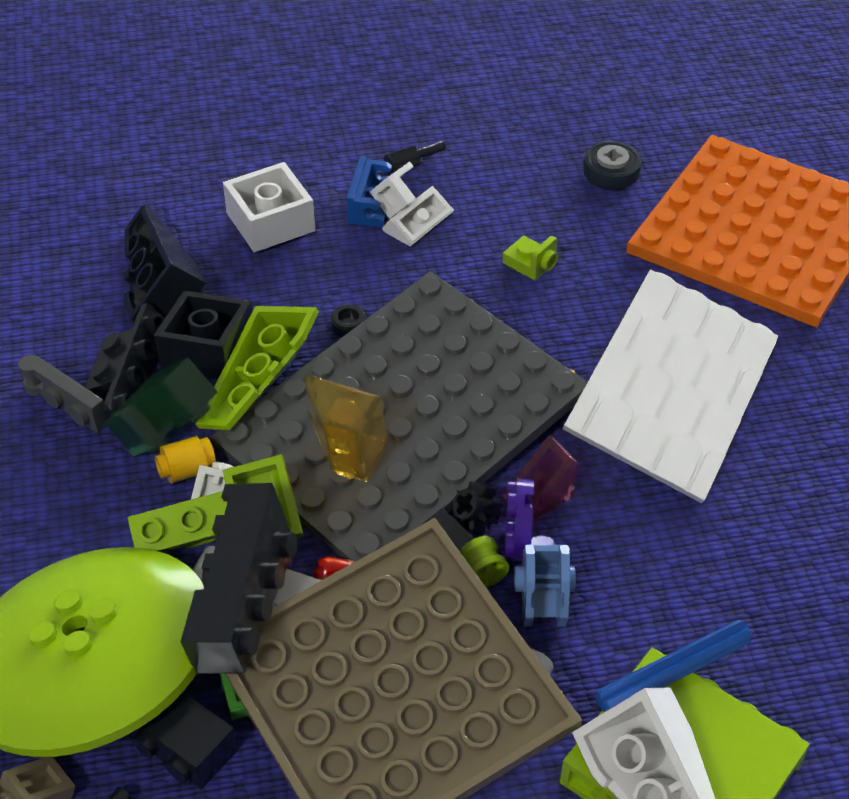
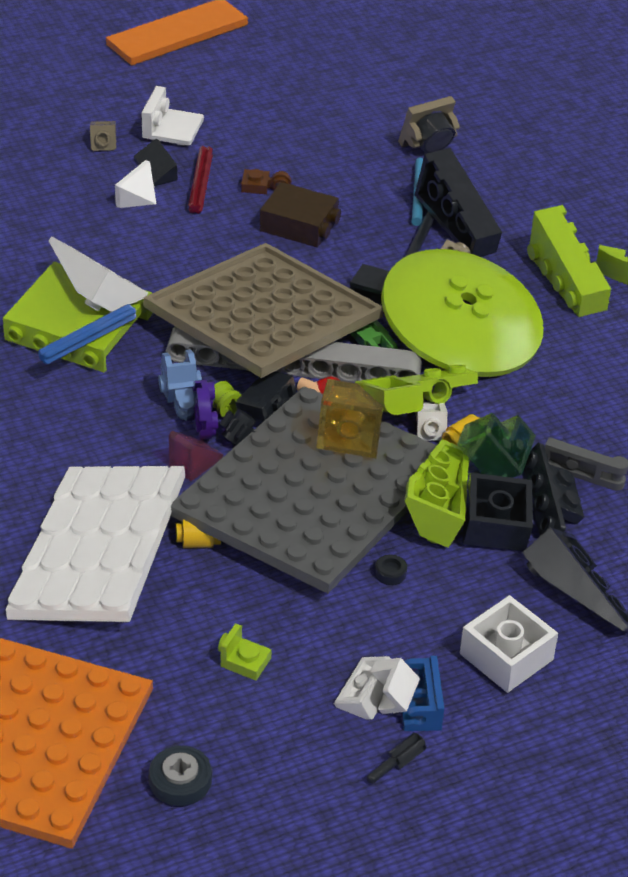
camera: 165 degrees right, 5 degrees down
(239, 580) = (374, 318): black wedge -> none

